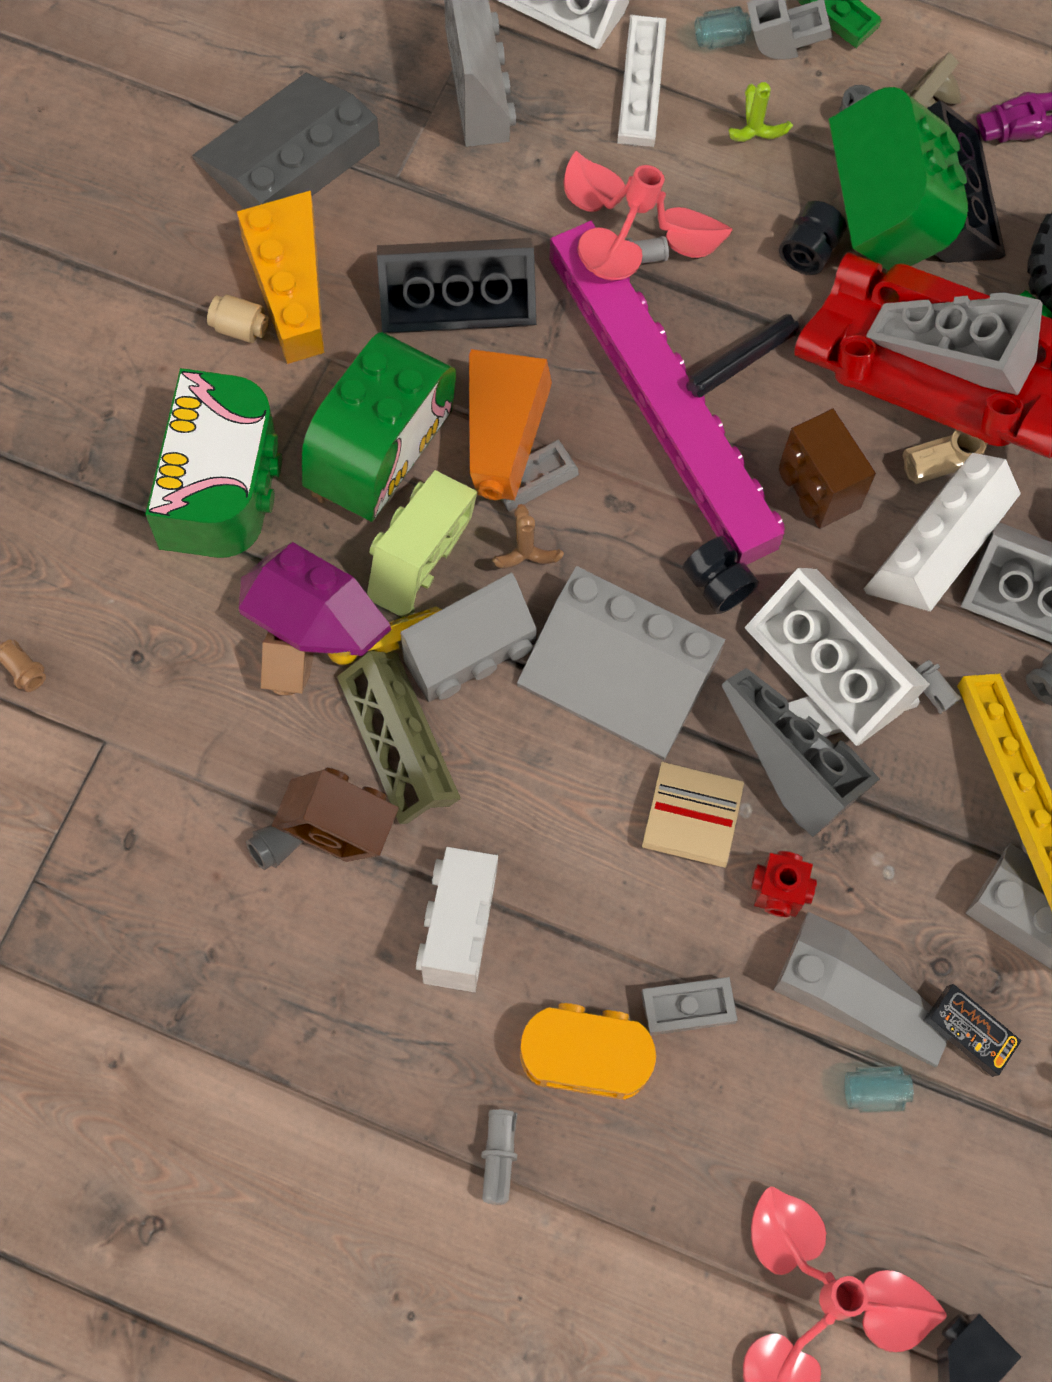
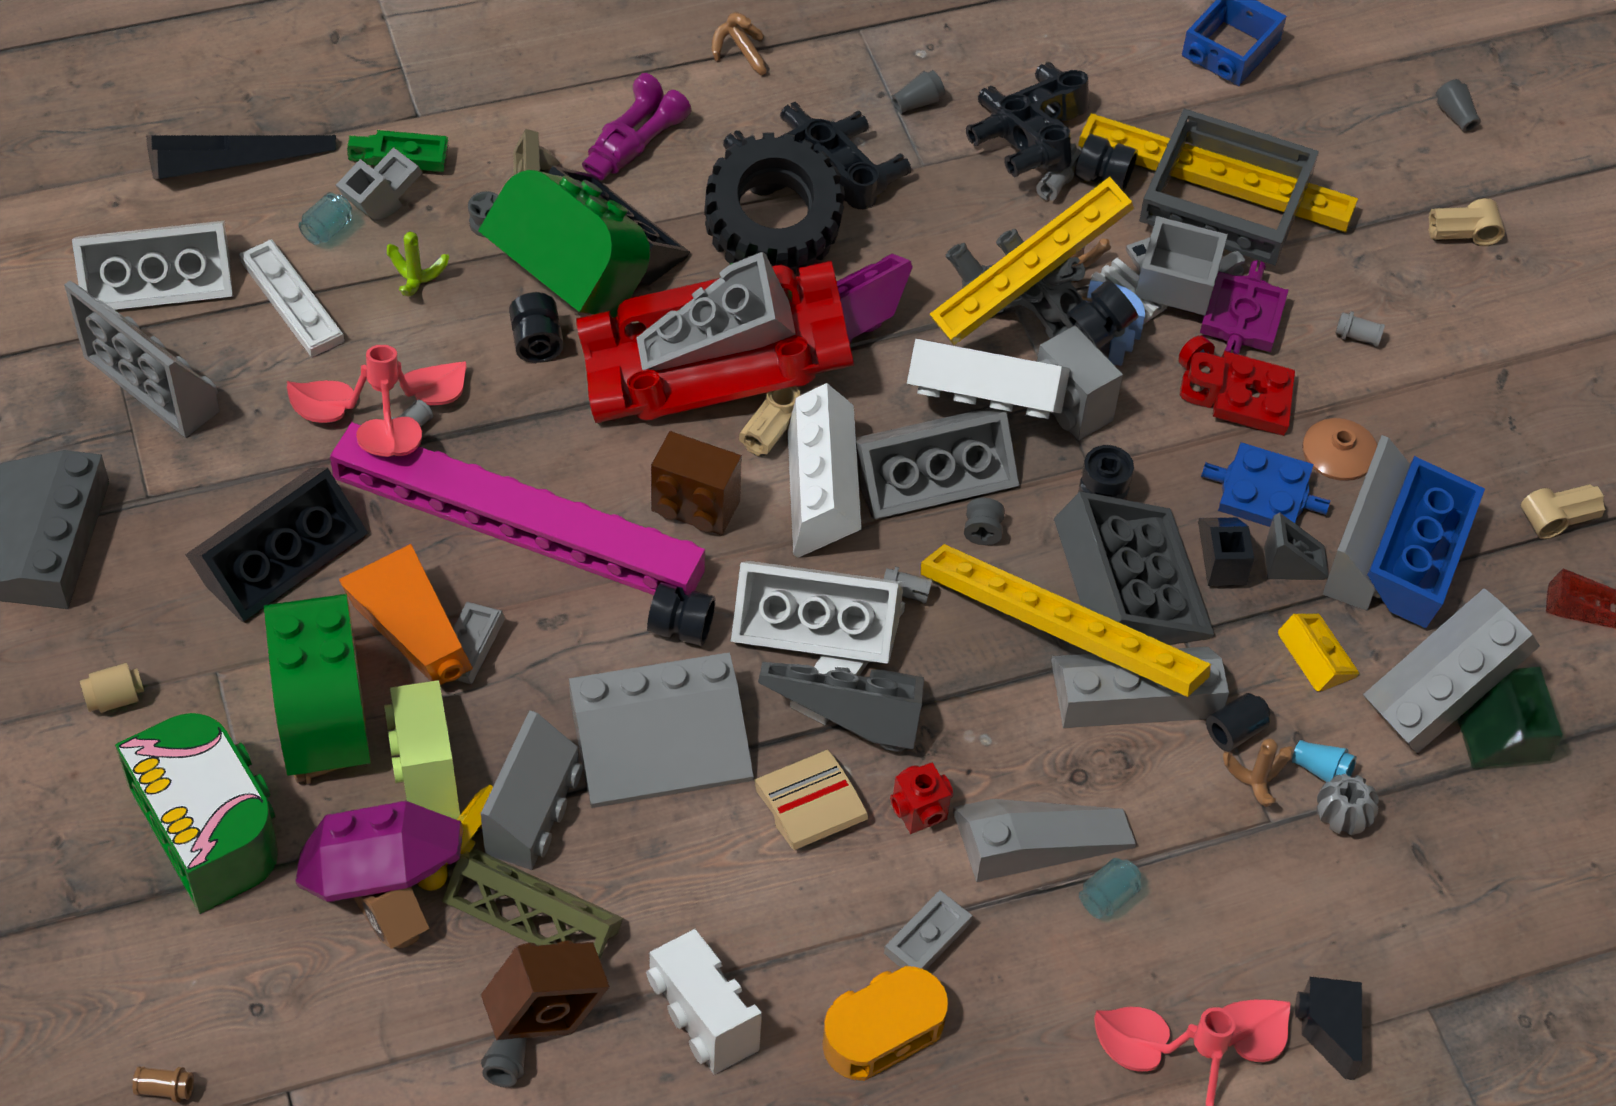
camera: 40 degrees left, 15 degrees down
(284, 259) = (122, 623): light orange wedge -> none
(525, 544) = (507, 694): medium nougat piece -> none
(742, 355) = (558, 445): black axle -> none
(972, 1030) = (1139, 799): black tile -> none

